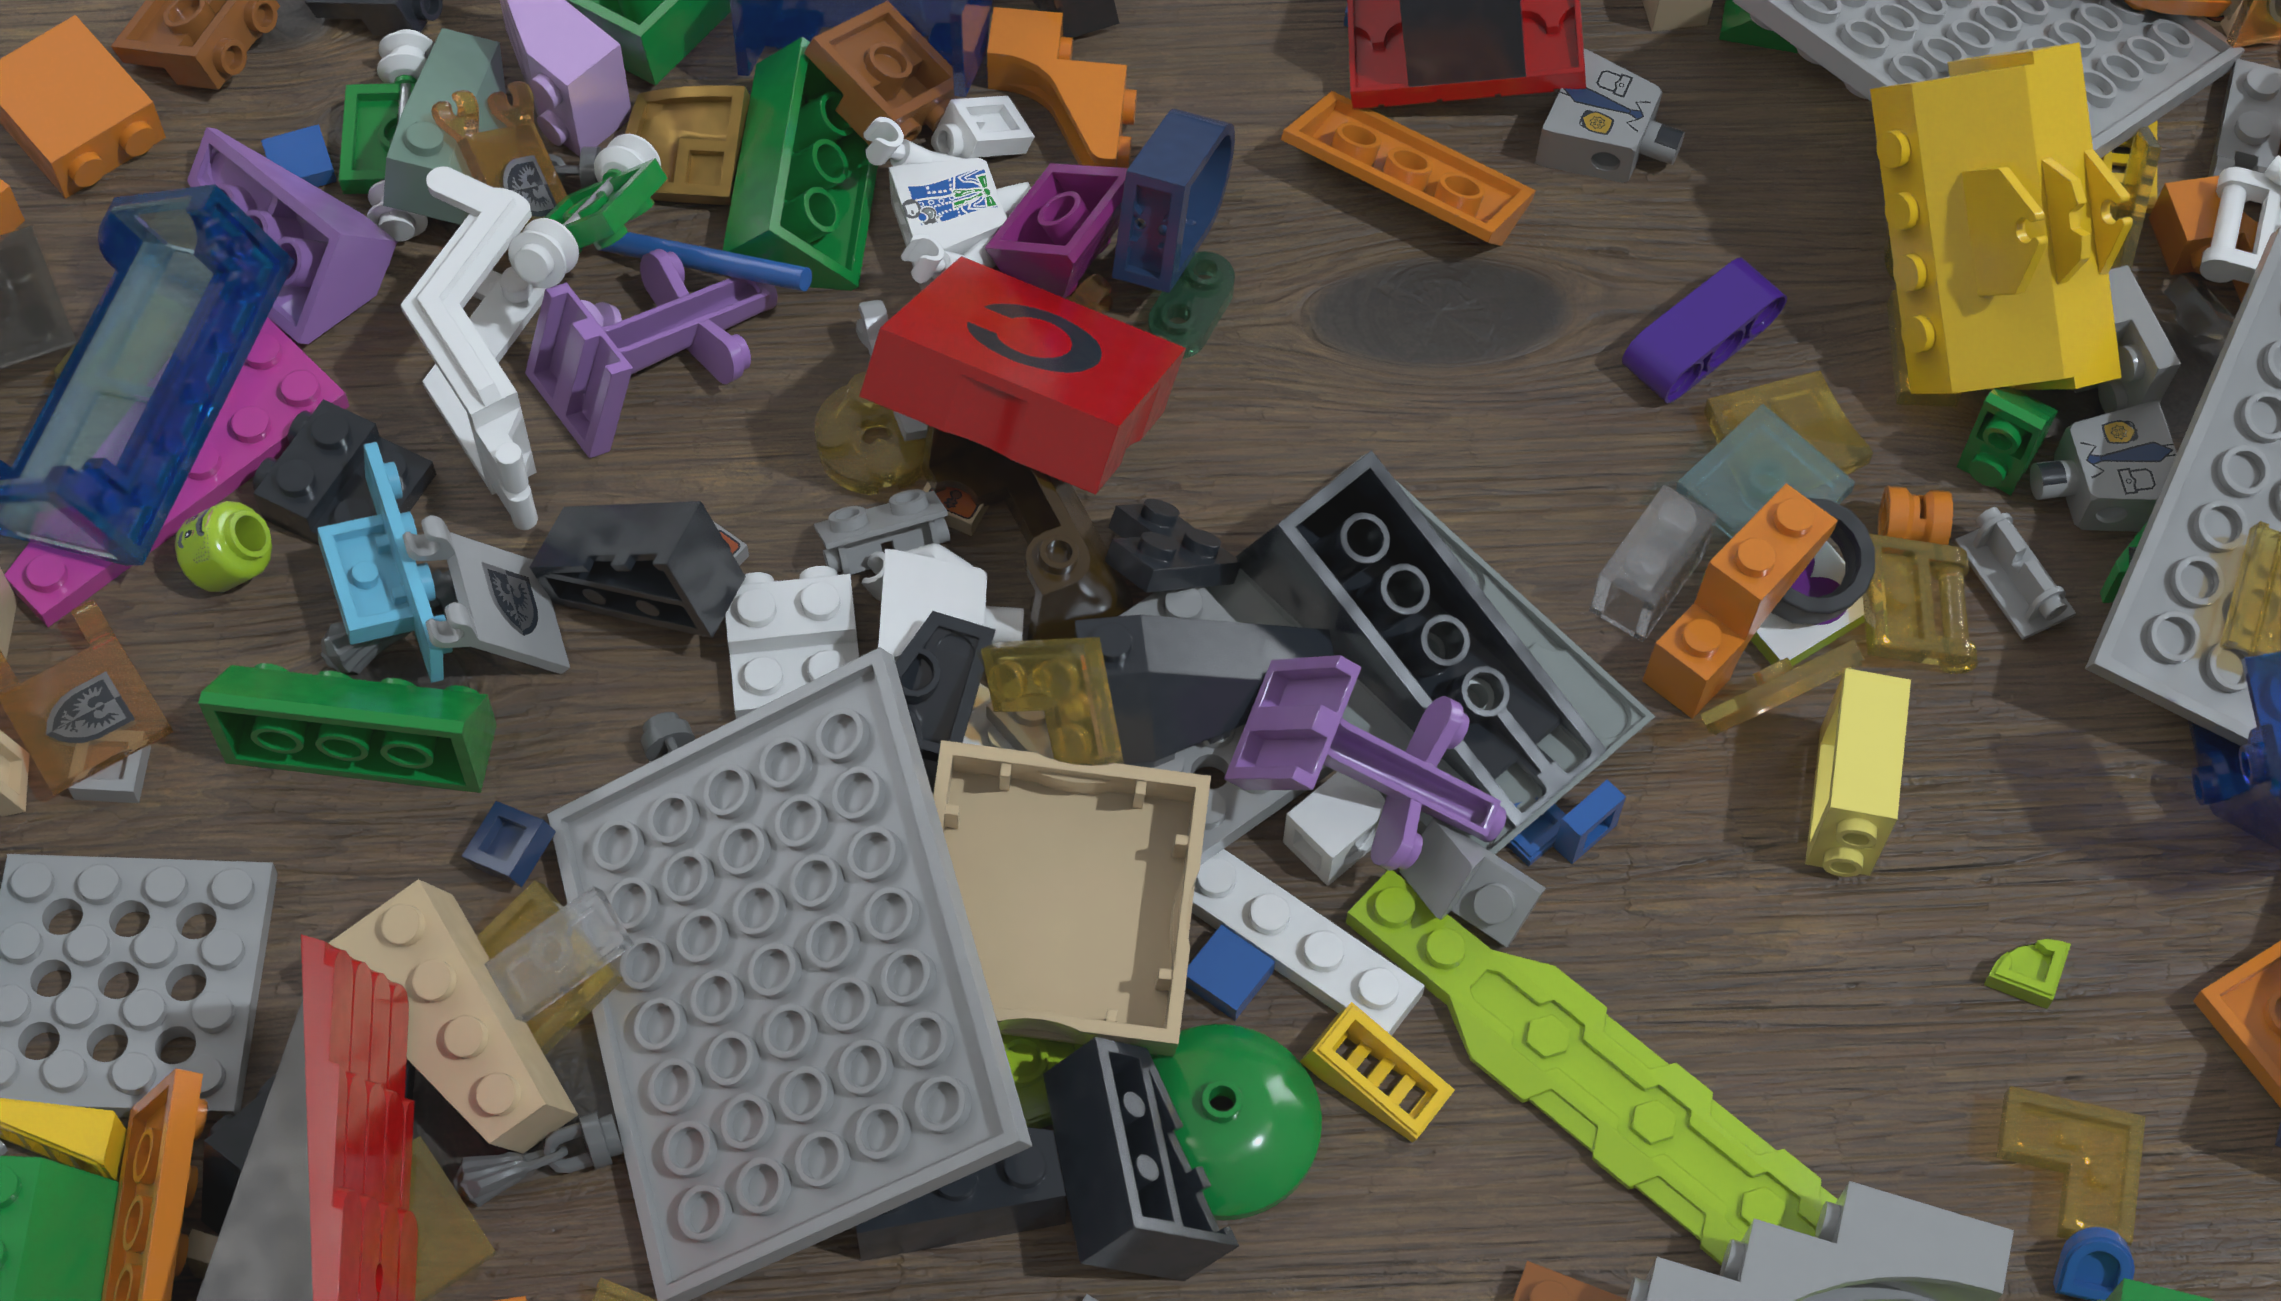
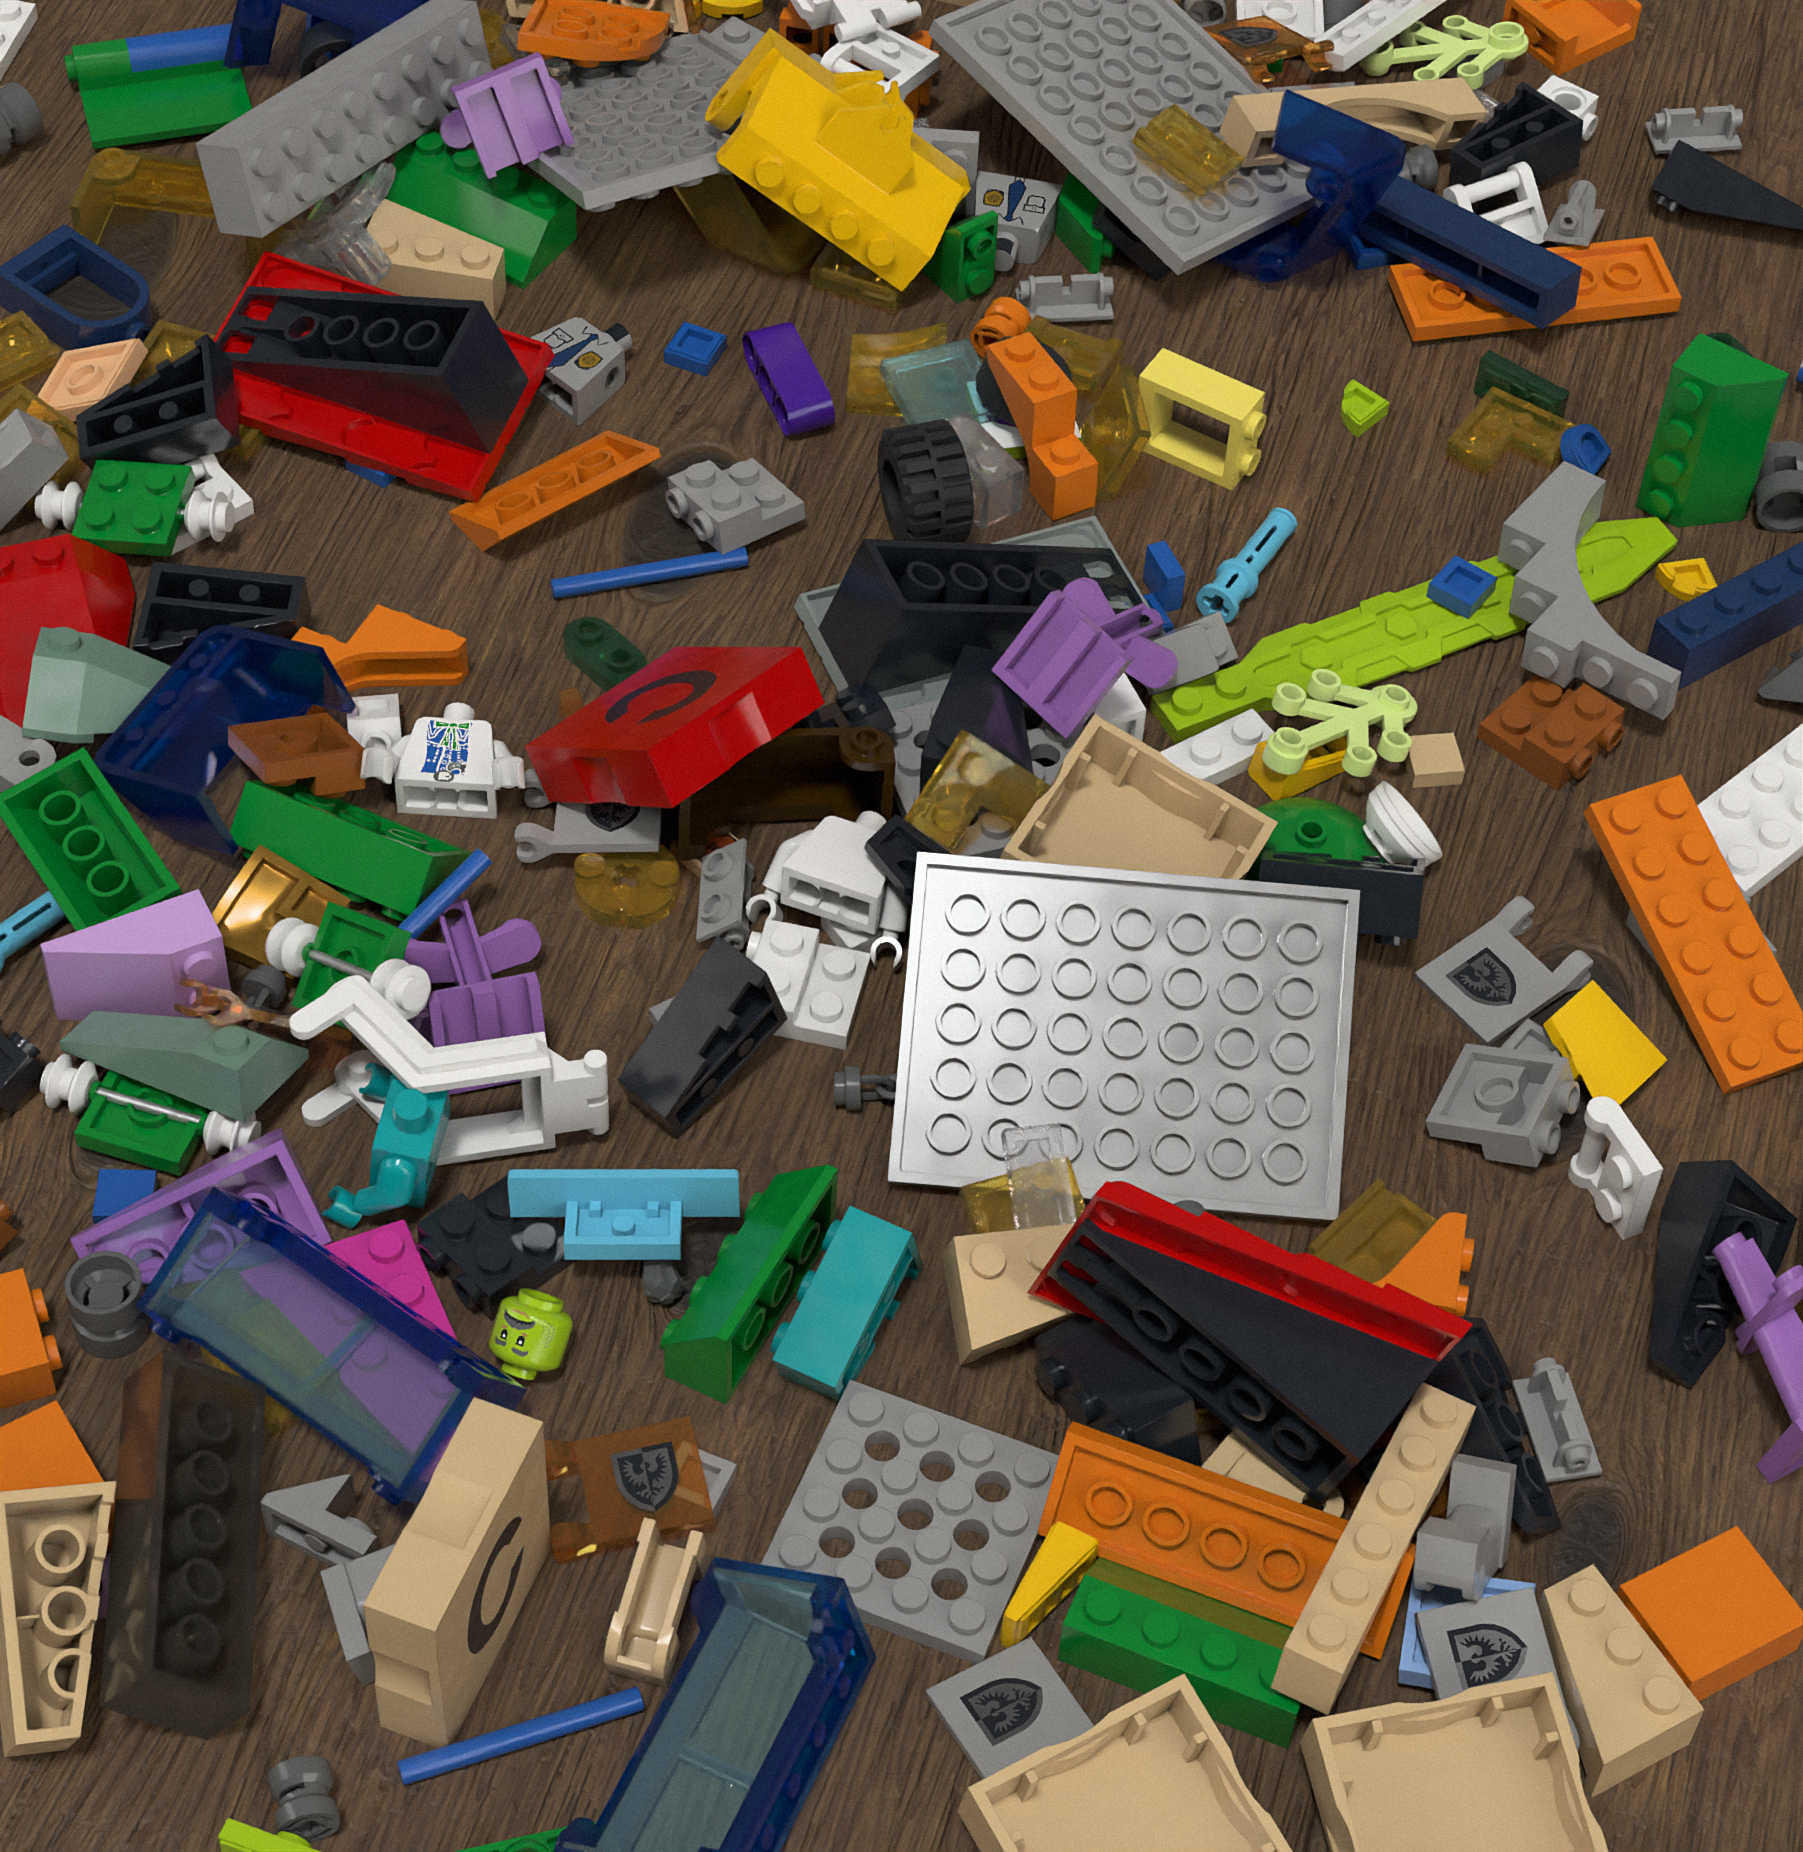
camera: 70 degrees left, 10 degrees down
(138, 165) = (102, 1304): none -> dark grey wheel
(355, 818) = (845, 1302): none -> teal wedge
(389, 354) = (401, 1153): none -> teal torso
(497, 596) = (730, 1147): light grey flag -> none
(508, 844) = (907, 1207): dark blue plate -> none
(1060, 226) = (521, 679): magenta slope -> none
(1177, 192) = (561, 639): dark blue window -> none
(1305, 1220) = (1398, 828): none -> white piece
(1338, 304) = (647, 573): none -> blue bar
(1435, 1094) = (1384, 706): none -> yellowish green plant
(1448, 1223) = (1434, 761): none -> tan tile
(1471, 340) = (732, 504): none -> light grey plate
(1568, 509) = (925, 482): none -> black tyre
(1638, 907) = (1238, 576): none -> medium azure pin
(1712, 228) = (695, 349): none -> blue tile
(1748, 1173) = (1461, 587): none -> blue tile
(2164, 1154) = (1519, 382): none -> clear green plate

